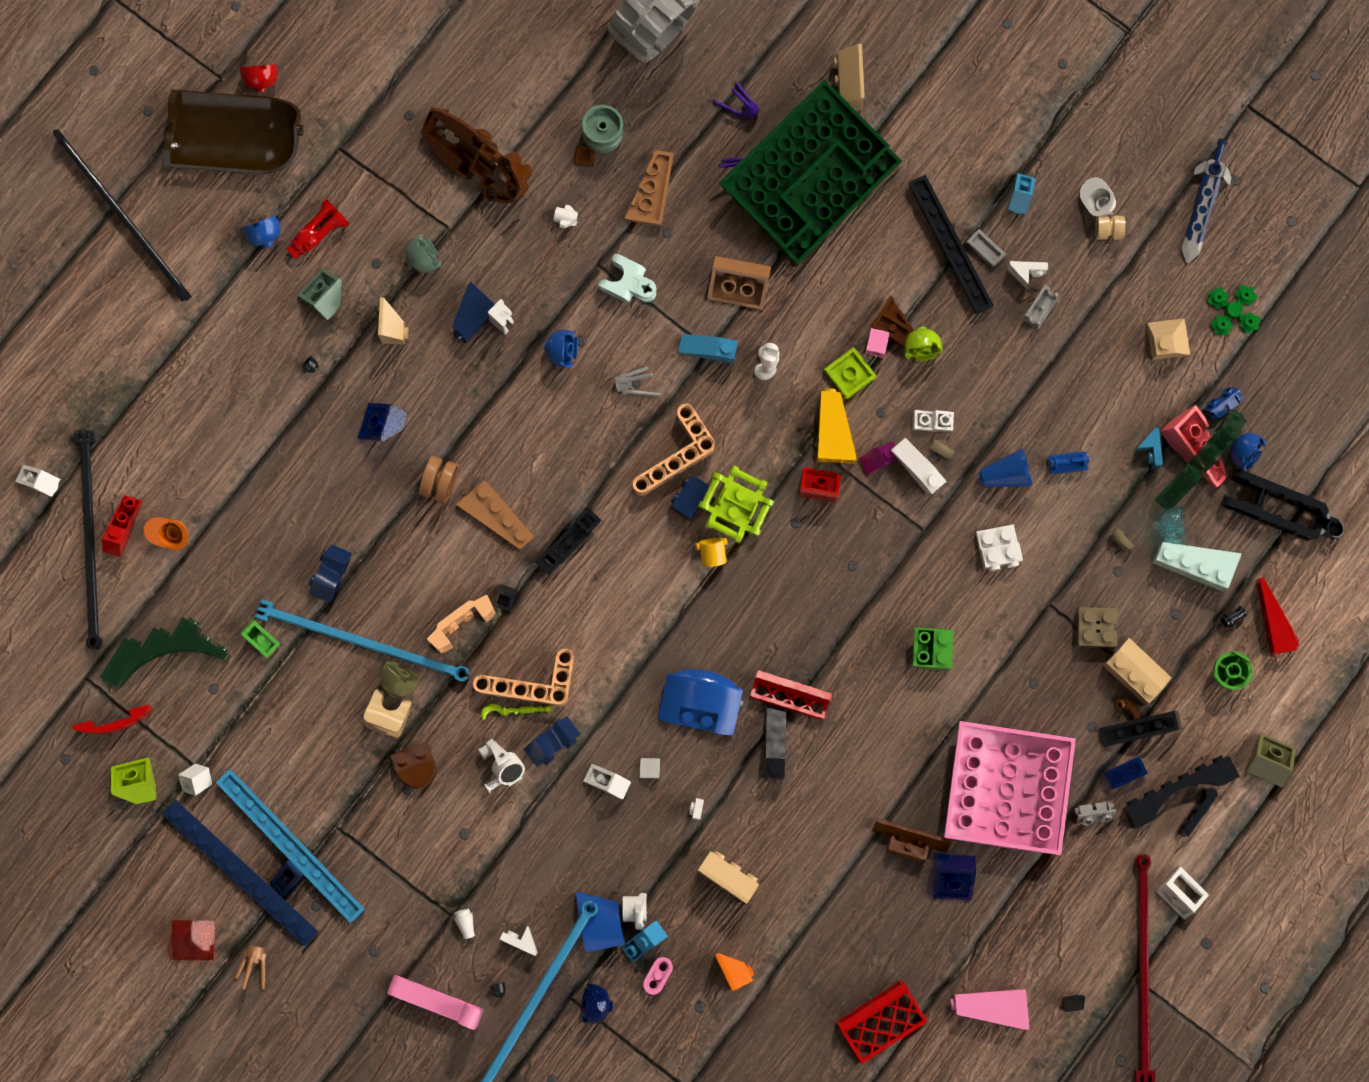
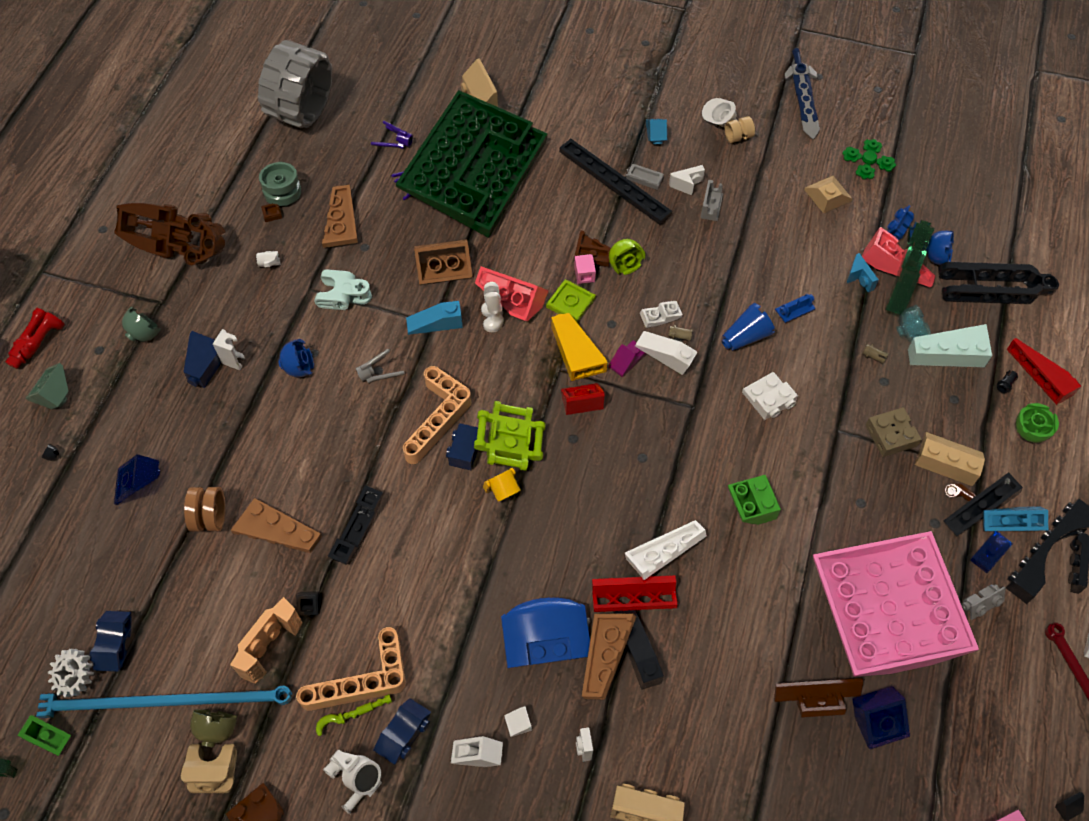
camera: 15 degrees left, 20 degrees down
(296, 589) = (75, 662): none -> white gear
(391, 326) = (122, 390): tan slope -> none
(745, 736) = (605, 651): none -> medium nougat wing
(797, 349) = (517, 296): none -> coral wedge
(829, 665) = (660, 551): none -> white wing
(1161, 753) = (1016, 519): none -> dark azure slope

